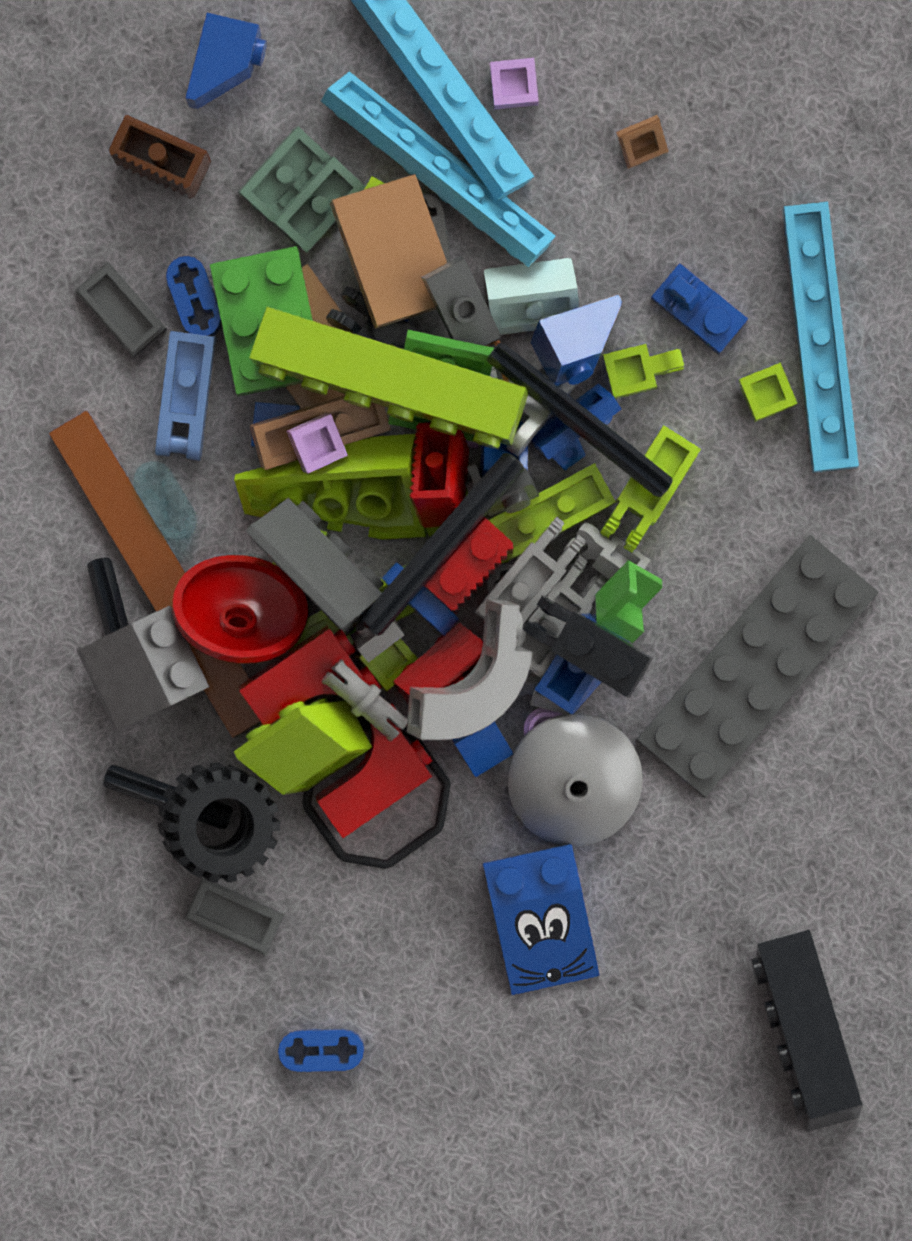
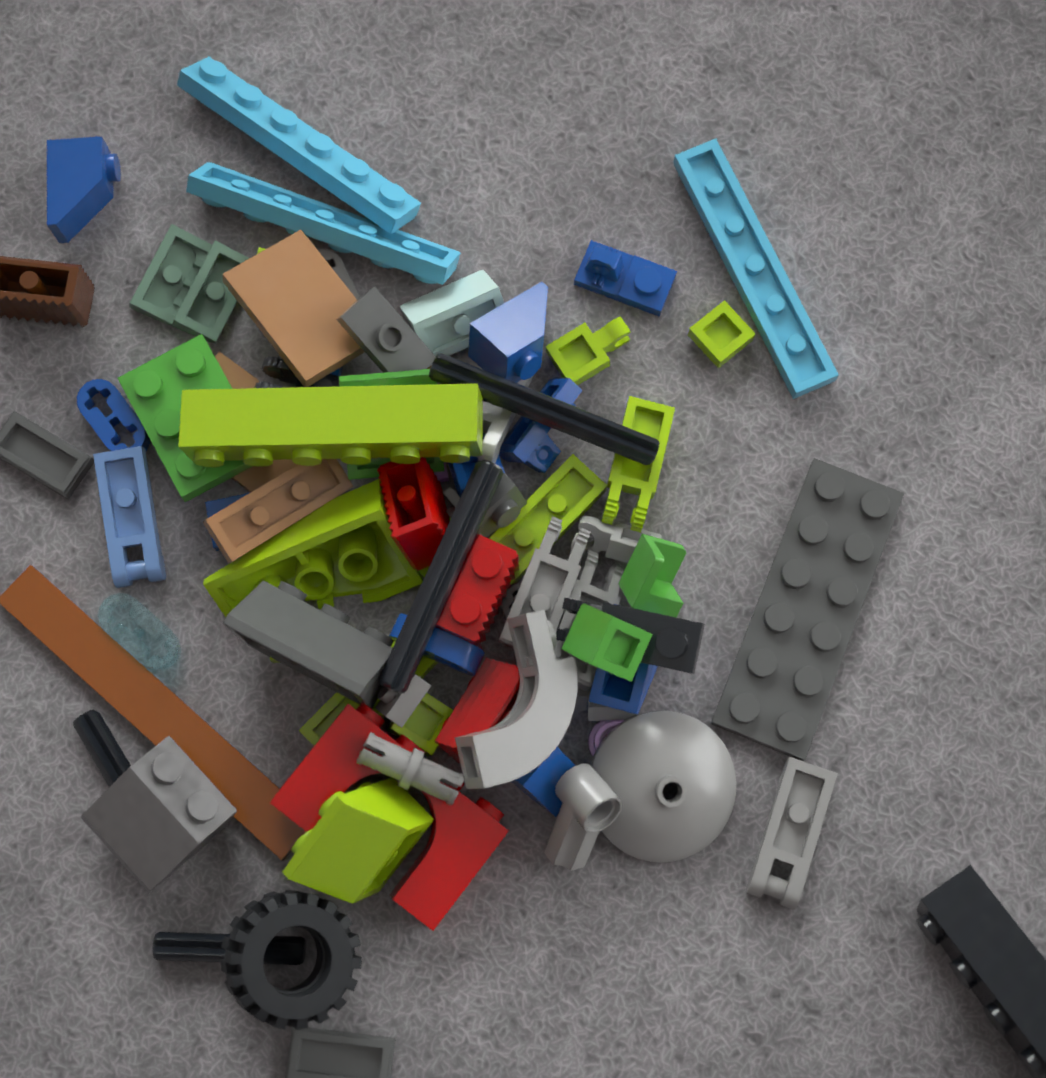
camera: 25 degrees left, 10 degrees down
(239, 609) = (246, 717): red dish -> none
(317, 443) = (278, 516): lavender plate -> none
(411, 847) = (506, 923): black piece -> none
(501, 781) = (585, 810): none -> light grey piece
(514, 83) = (373, 124): lavender plate -> none
(541, 919) = (677, 949): blue slope -> none
(562, 649) = (606, 642): none -> bright green panel
(642, 141) = (516, 139): medium nougat slope -> none
(673, 852) = (792, 831): none -> light grey plate

